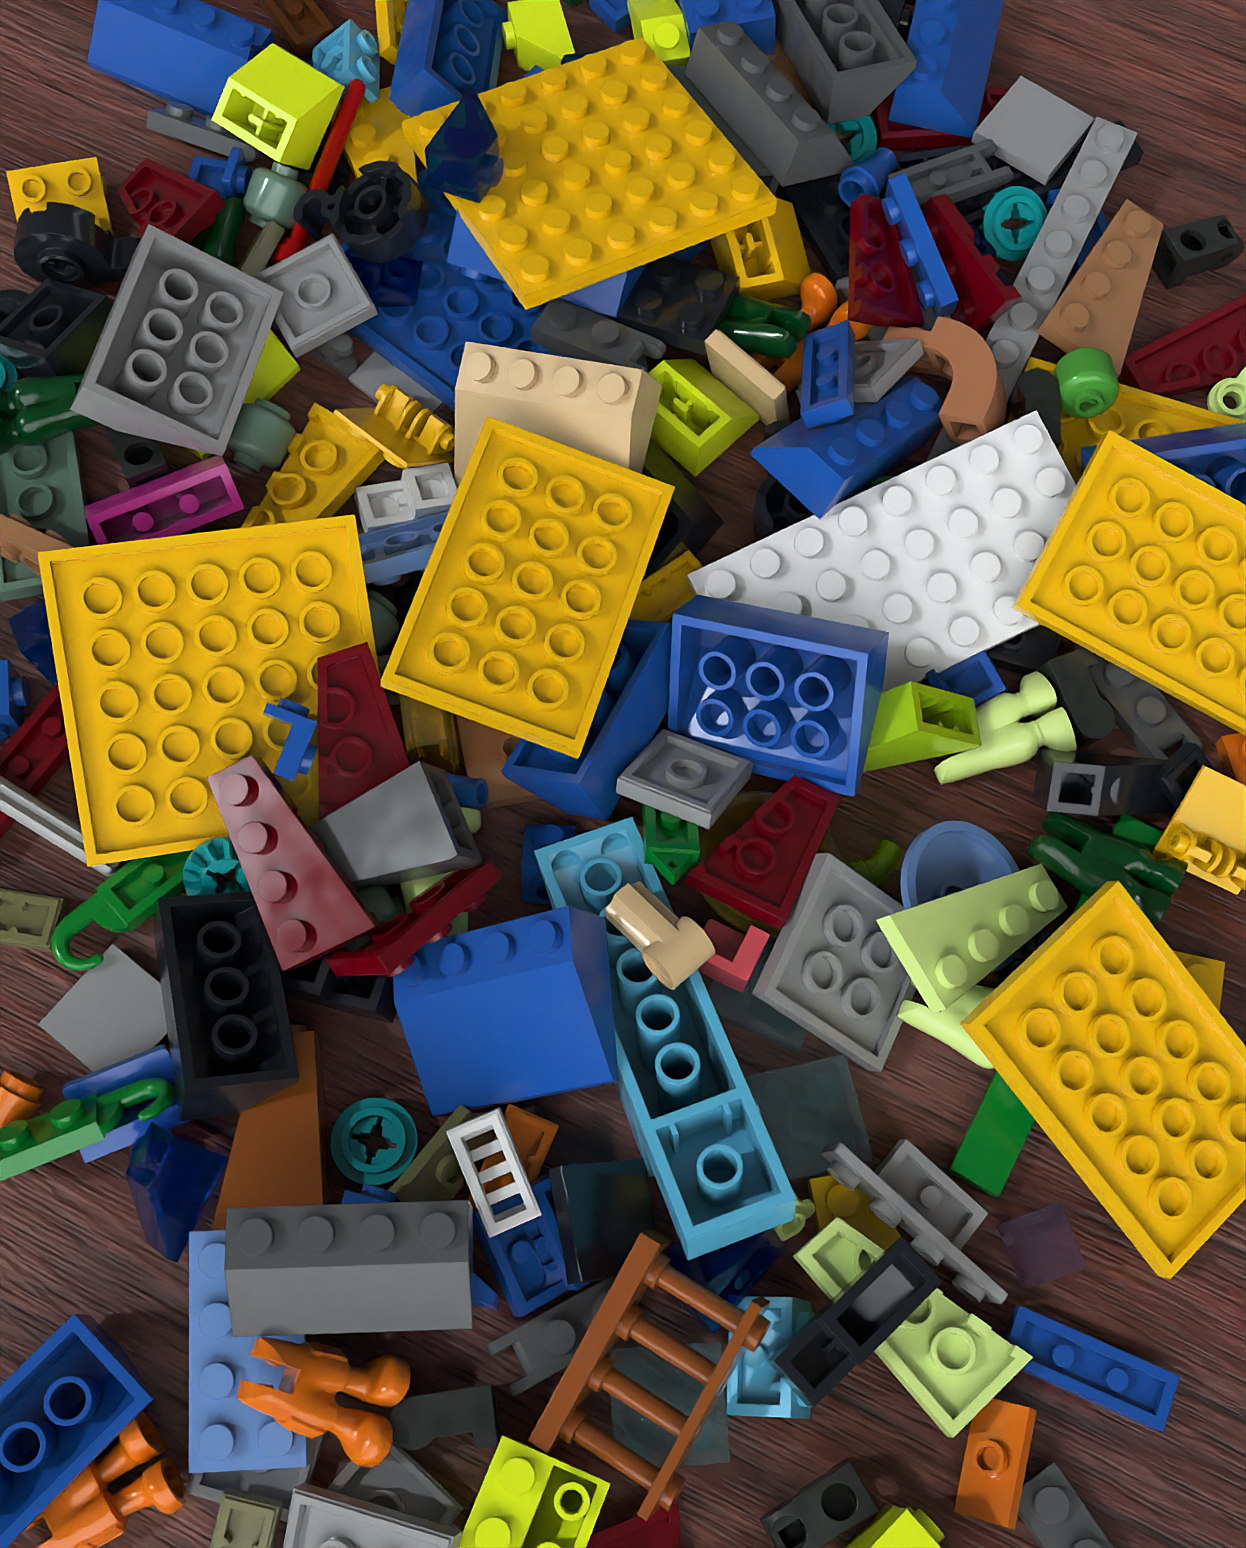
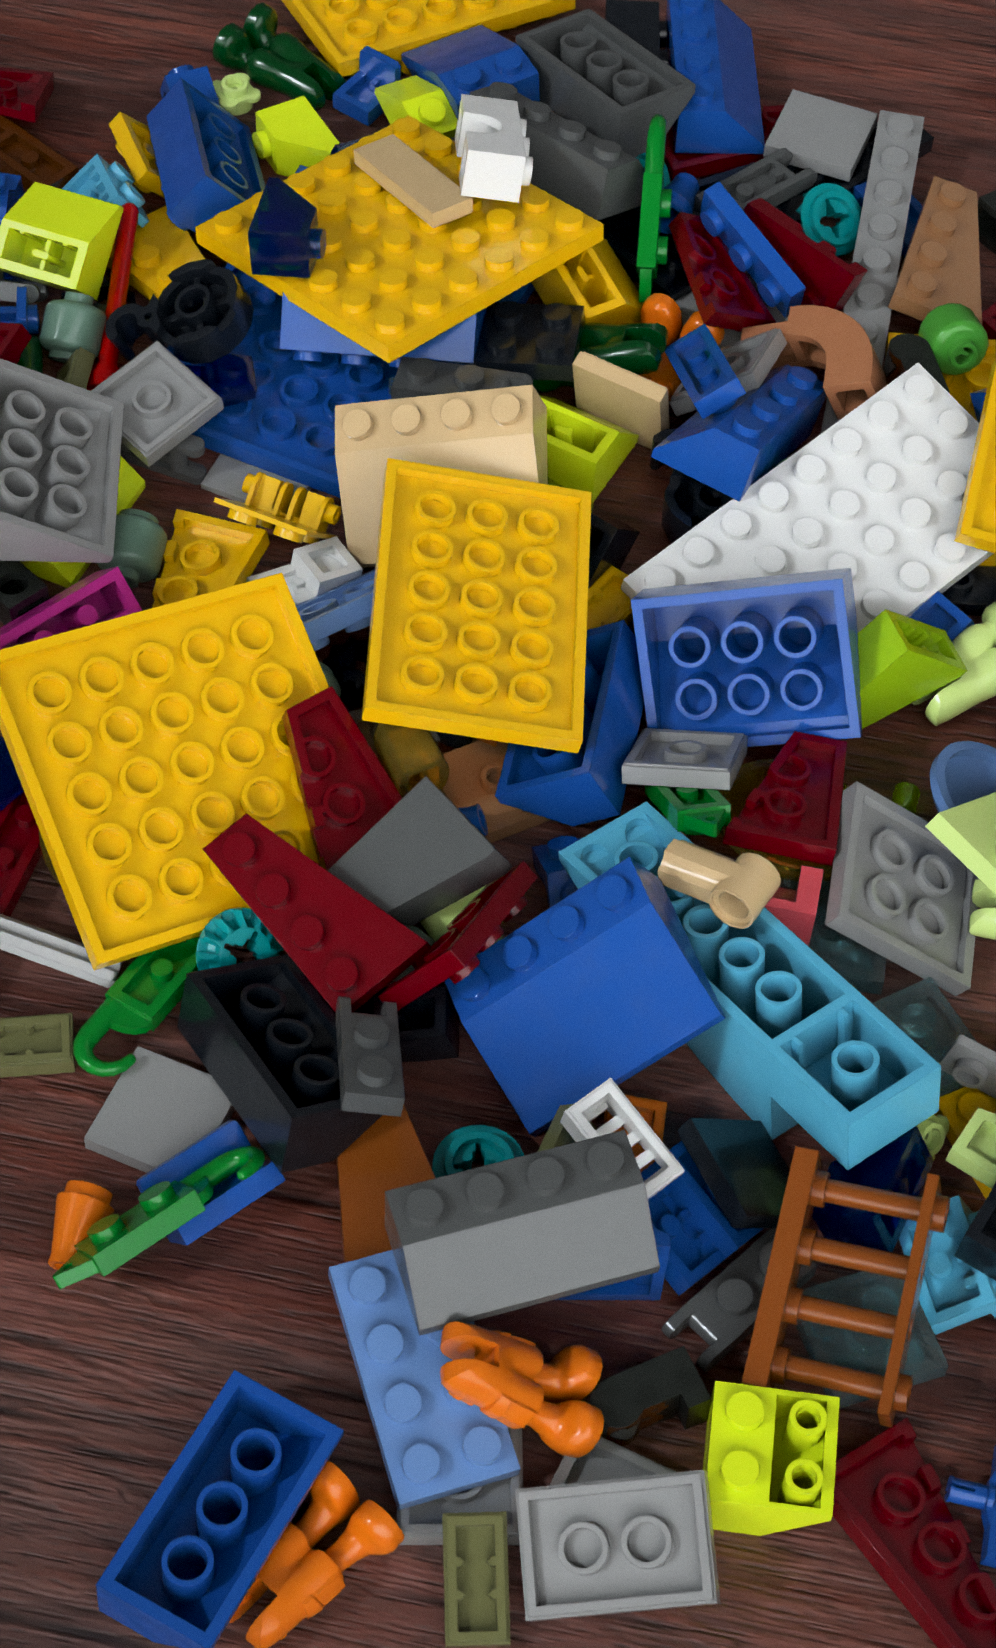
camera: 15 degrees left, 15 degrees down
(171, 1185) = (286, 1245): clear blue slope -> none
(284, 1035) = (369, 1060): none -> dark grey hinge
(297, 751) = (286, 782): blue bracket -> none
(612, 116) = (413, 181): none -> tan tile
(693, 97) = (492, 148): none -> white arch
(839, 183) = (655, 205): none -> green plate

